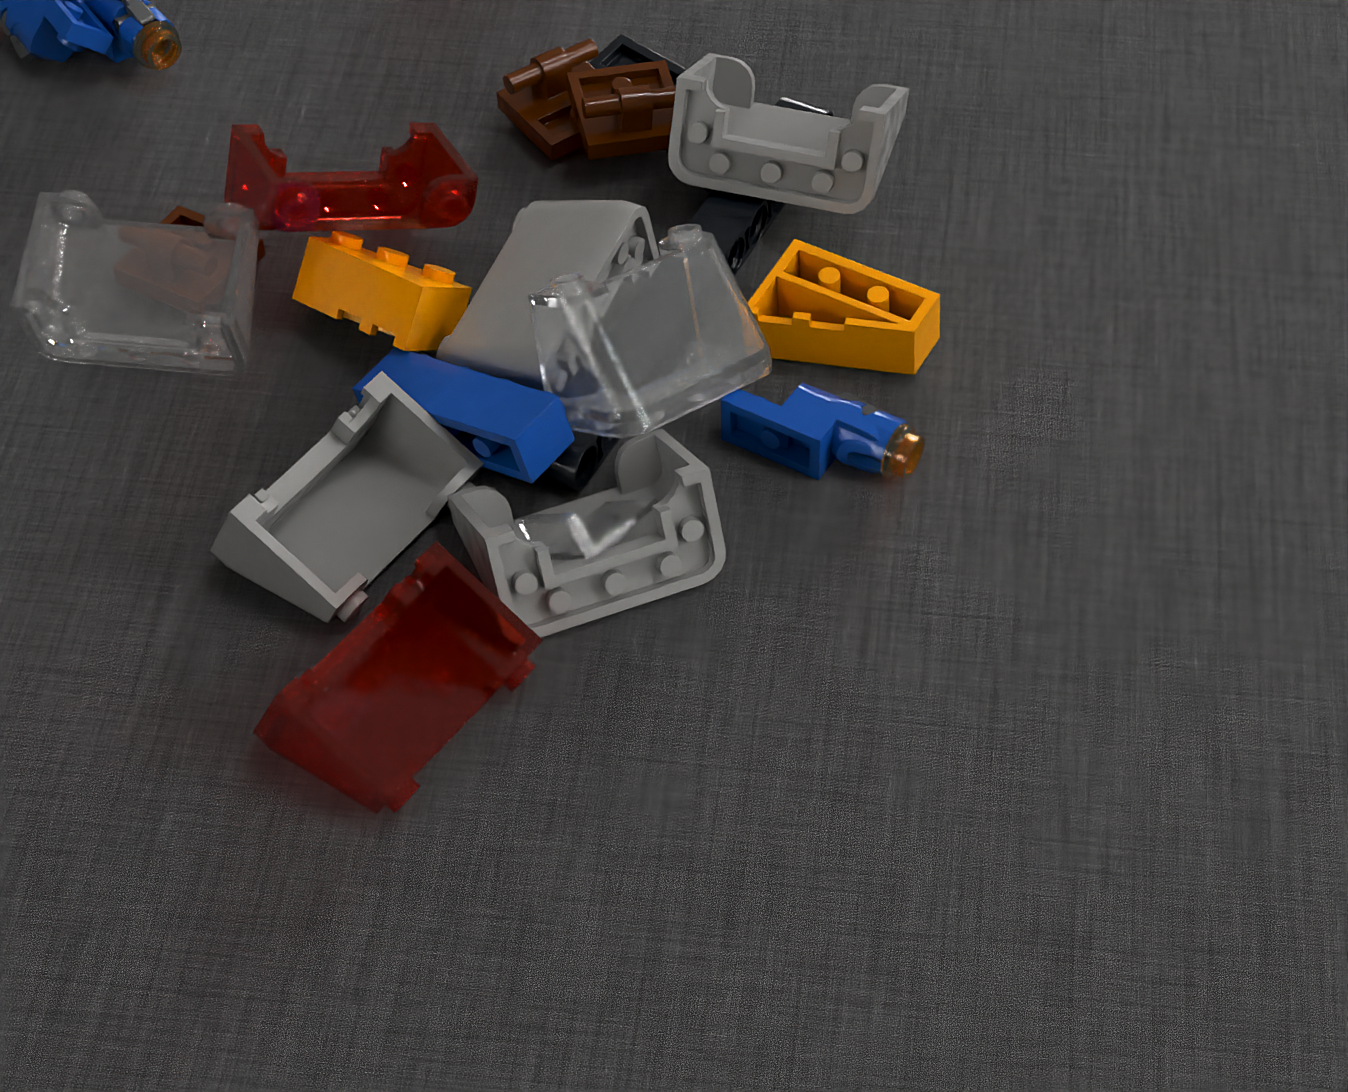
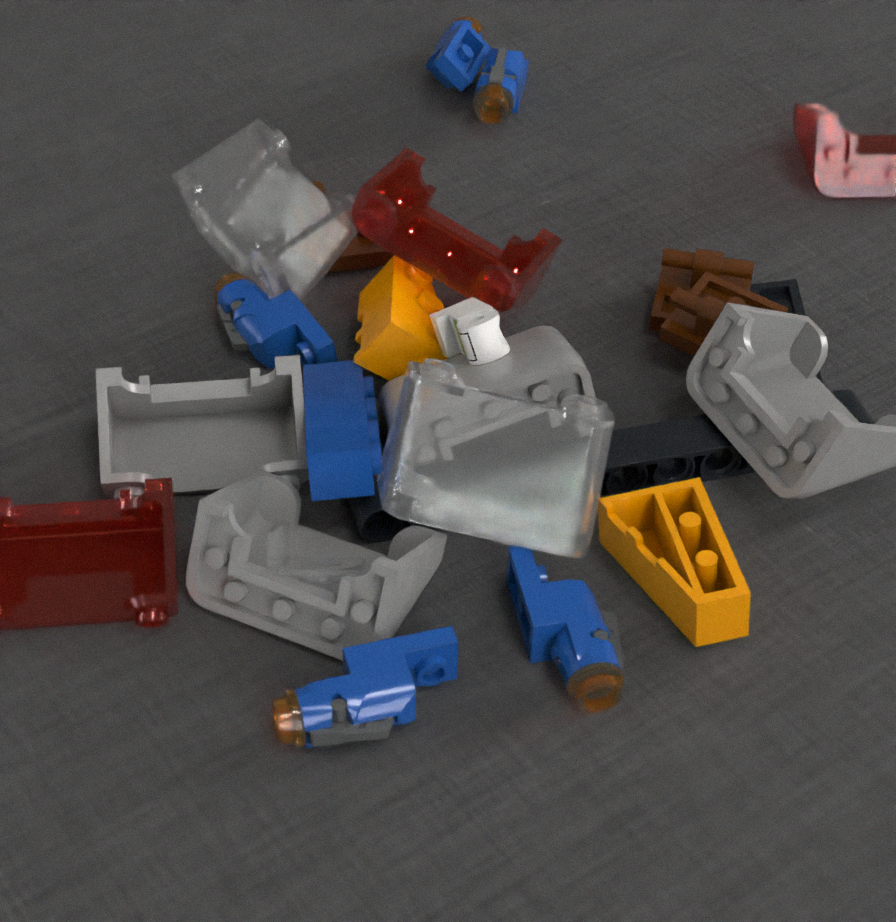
camera: 45 degrees right, 5 degrees down
(261, 383) = (269, 324): none -> blue plate
(491, 247) = (471, 330): none -> white leg
(759, 589) = (371, 694): none -> blue plate

